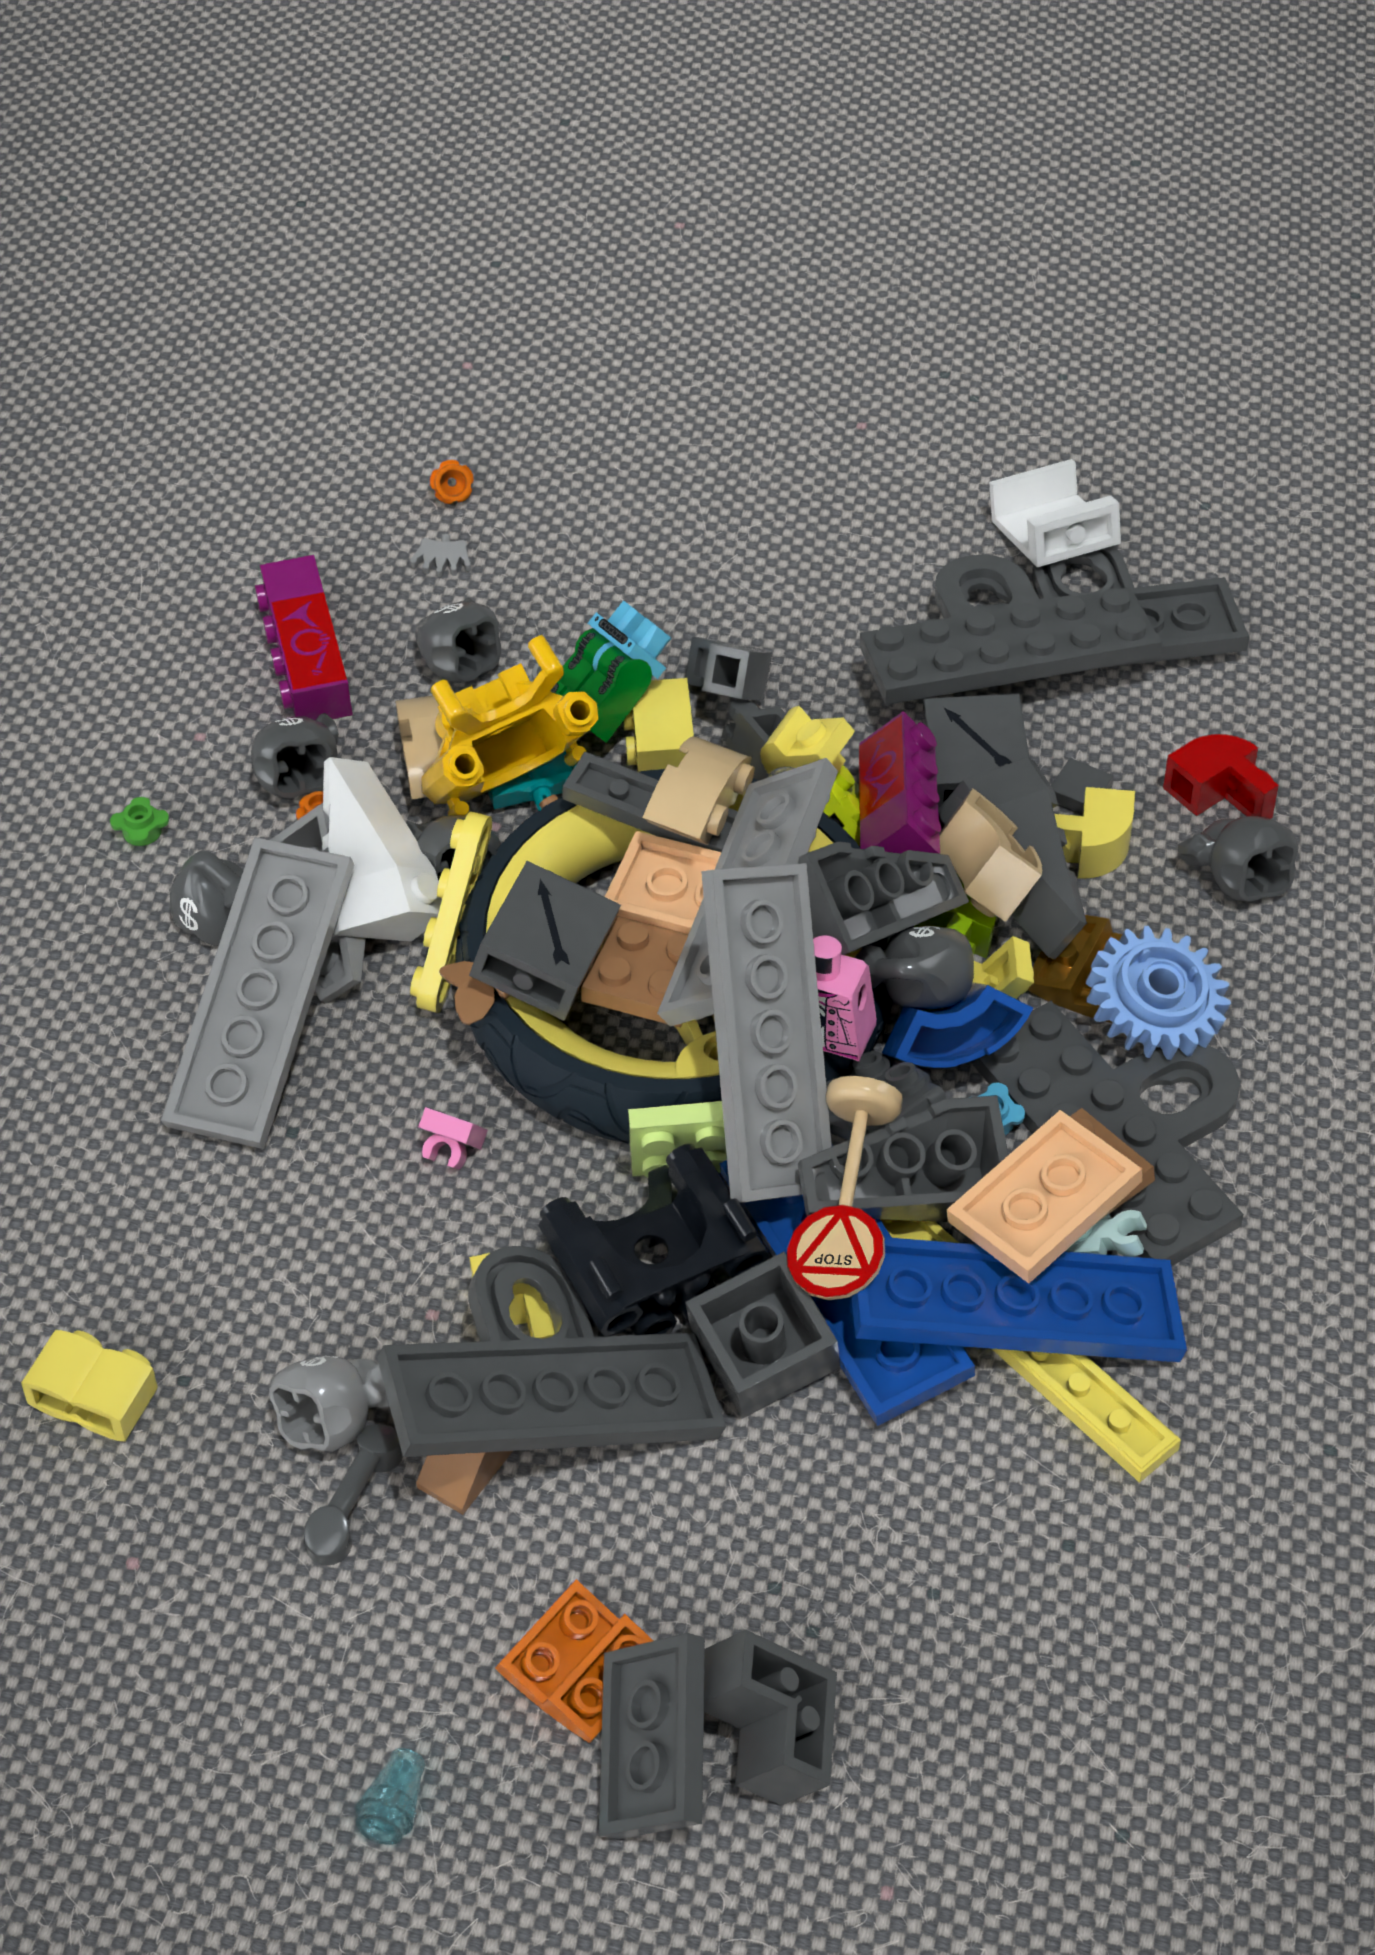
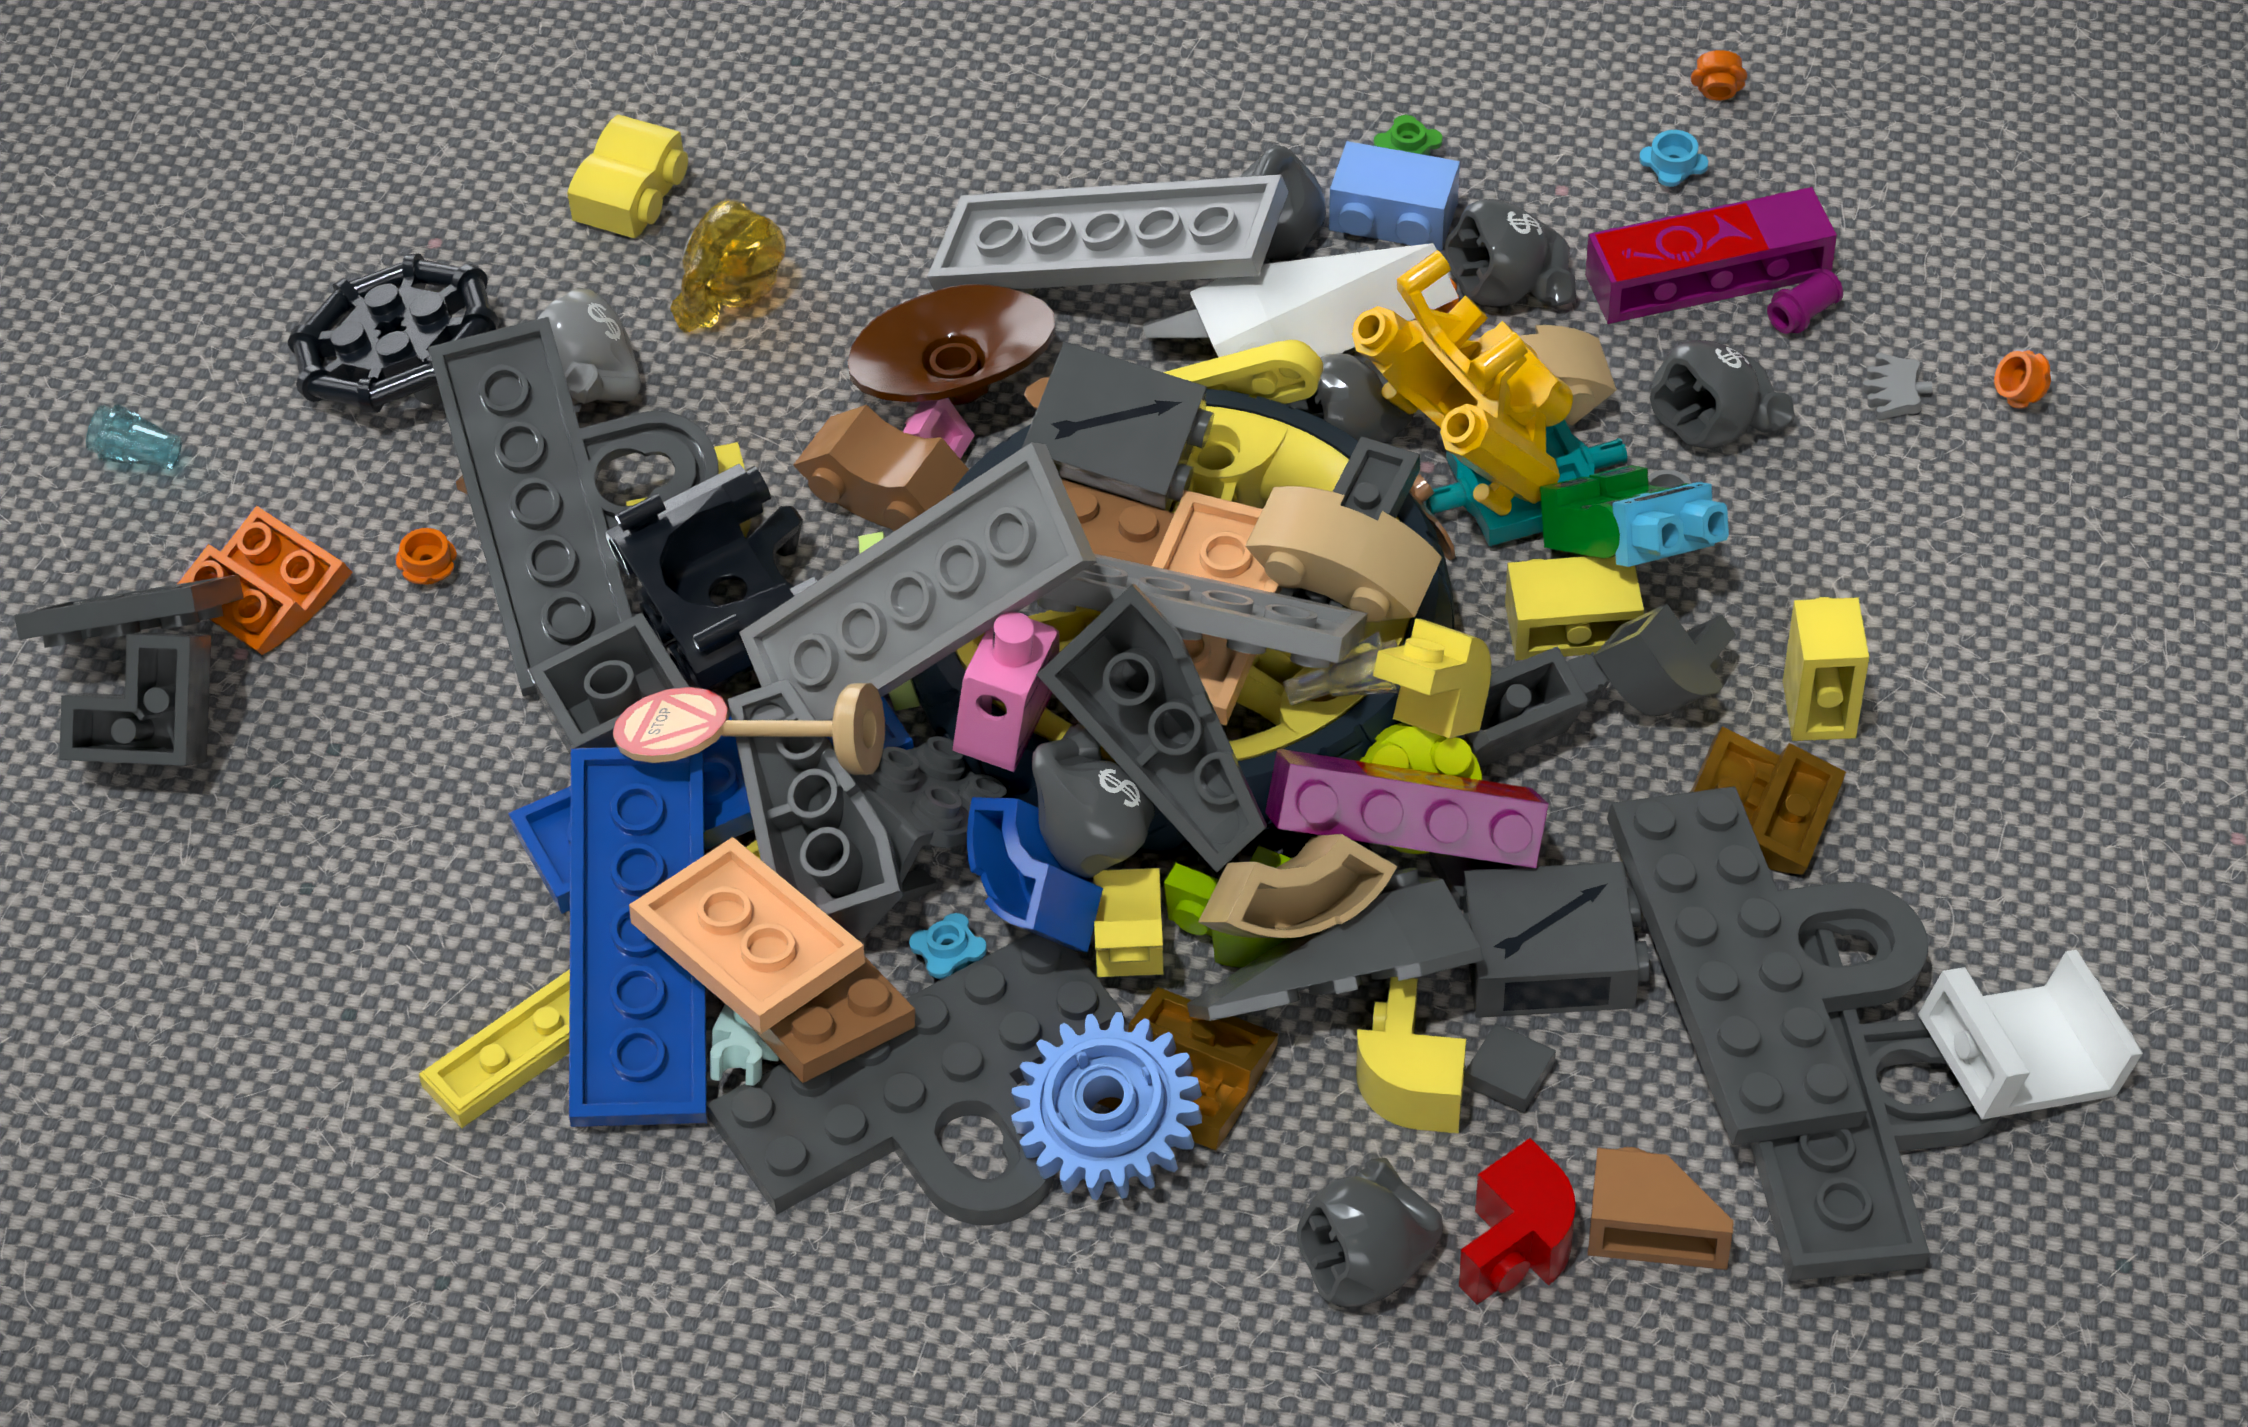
camera: 90 degrees right, 0 degrees up
(100, 628) = (1719, 74): none -> orange plate
(186, 660) = (1674, 157): none -> medium azure plate
(211, 818) = (1393, 195): none -> light blue brick
(232, 1284) = (727, 263): none -> clear yellow piece
(293, 1595) = (388, 331): none -> black plate
(364, 599) = (1795, 307): none -> magenta pin
(369, 1104) = (950, 344): none -> reddish brown hat
(496, 1162) = (878, 468): none -> medium nougat brick
(561, 1507) = (425, 556): none -> orange plate
(745, 585) = (1825, 668): none -> light yellow brick
(830, 649) = (1782, 794): none -> pearl gold slope
(1201, 705) = (1654, 1213): none -> medium nougat slope

